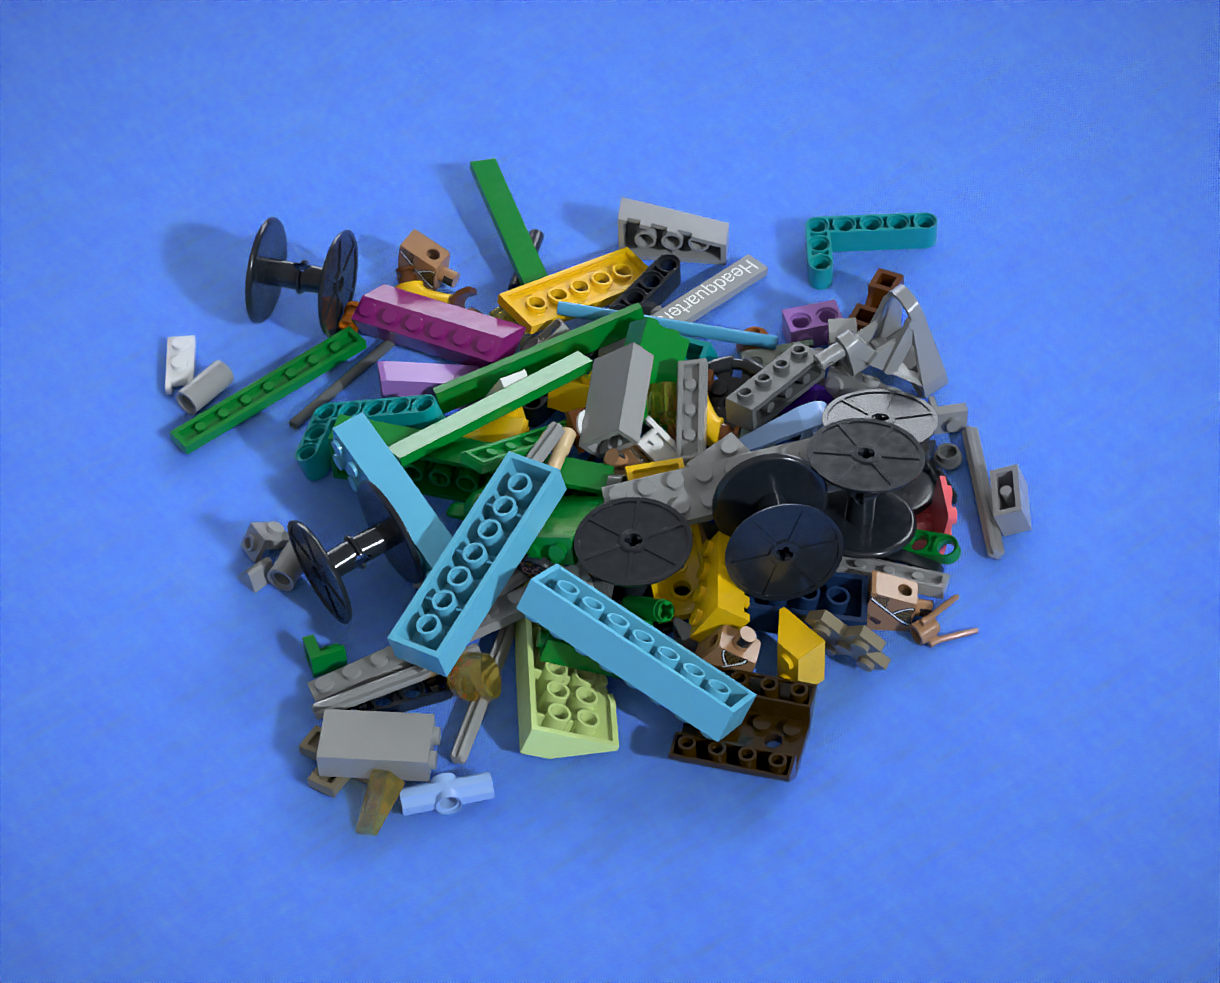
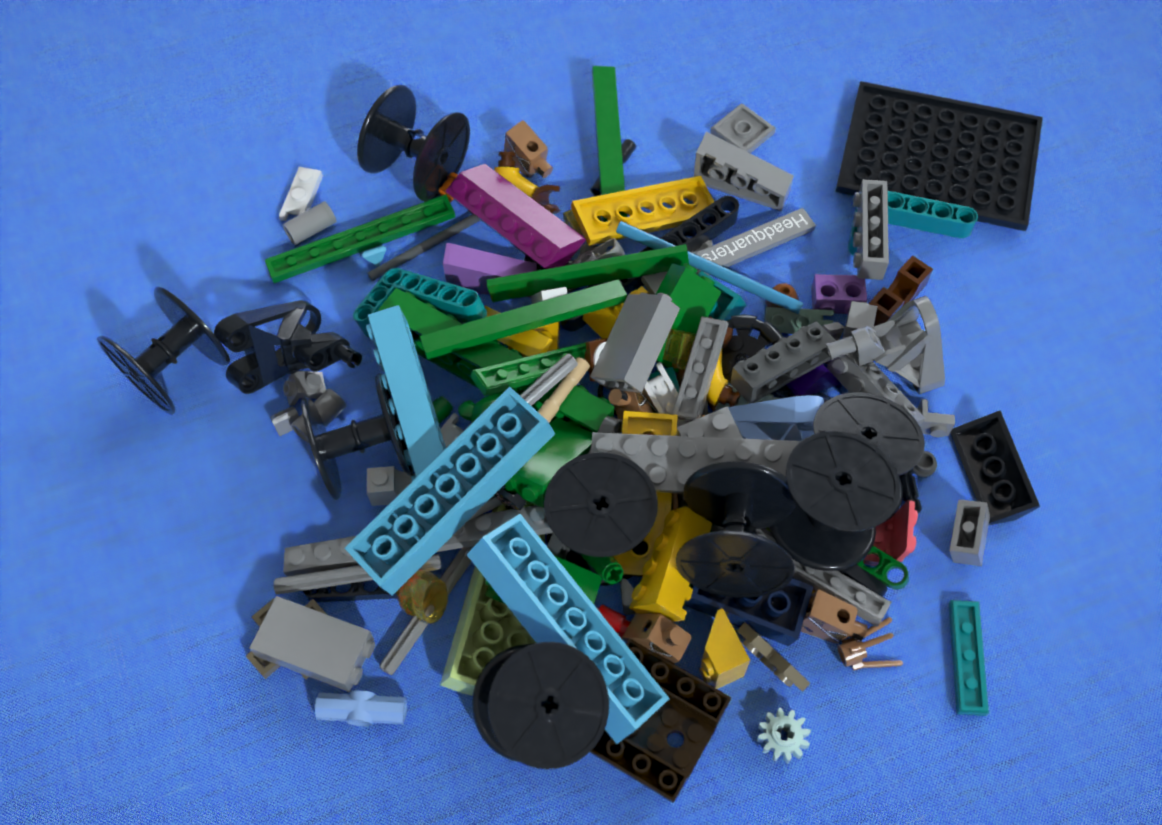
camera: 15 degrees right, 15 degrees up
(125, 503) = (186, 331): none -> black piece
(217, 516) = (298, 345): none -> black connector
(291, 402) = (374, 254): none -> medium azure slope
(324, 659) = (309, 524): green panel -> none
(378, 800) = (297, 702): clear yellow slope -> none
(391, 601) = (385, 484): none -> white arch
(630, 721) = (541, 704): none -> black piece
(660, 190) = (743, 129): none -> light grey tile
(828, 251) = (872, 230): none -> light grey brick
(878, 710) = (794, 733): none -> light aqua gear
(881, 167) = (943, 152): none -> black plate
(982, 492) = (946, 512): light grey axle -> none
(1020, 438) = (995, 468): none -> black slope
(1040, 609) = (968, 658): none -> teal tile

